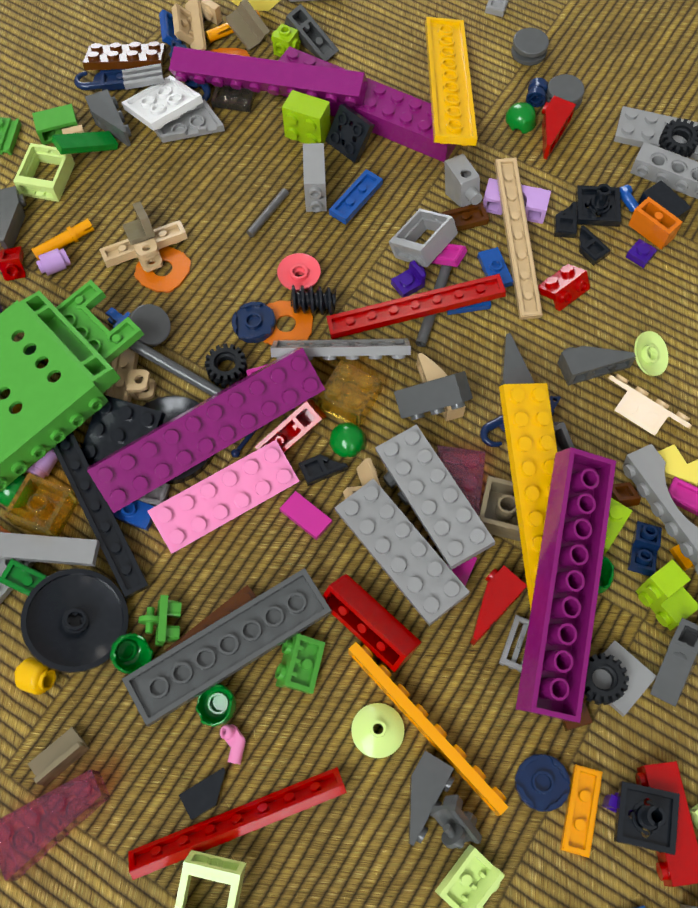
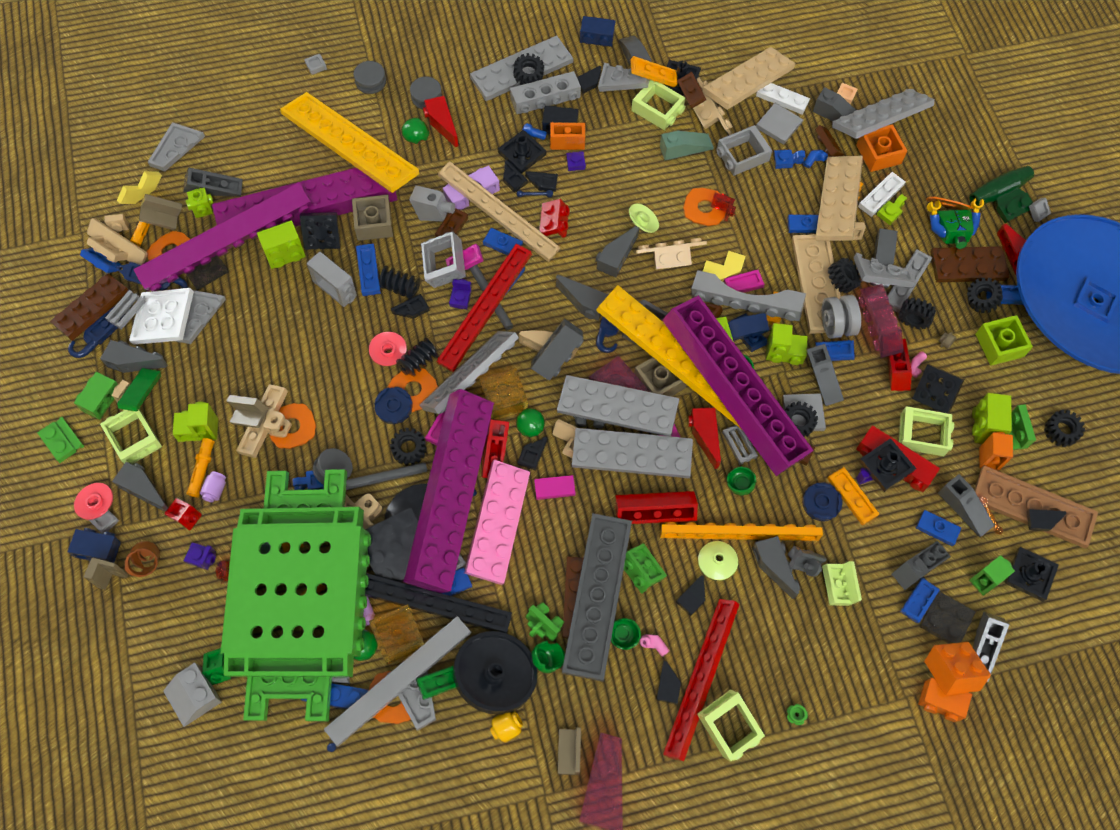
camera: 50 degrees left, 0 degrees up
(95, 202) = (195, 423): none -> lime brick
(267, 212) = (320, 329): flat silver bar -> none
(316, 739) = (693, 596): none -> black tile
(358, 257) = (411, 308): none -> black tile
(367, 226) = (399, 284): none -> black piece
(404, 156) = (372, 217): none -> dark tan brick
(479, 679) = (741, 481): none -> green hair
(537, 92) = (408, 105): dark blue wheel -> none
(584, 261) = (549, 193): none -> dark blue hinge
(647, 540) = (749, 325): none -> dark blue slope

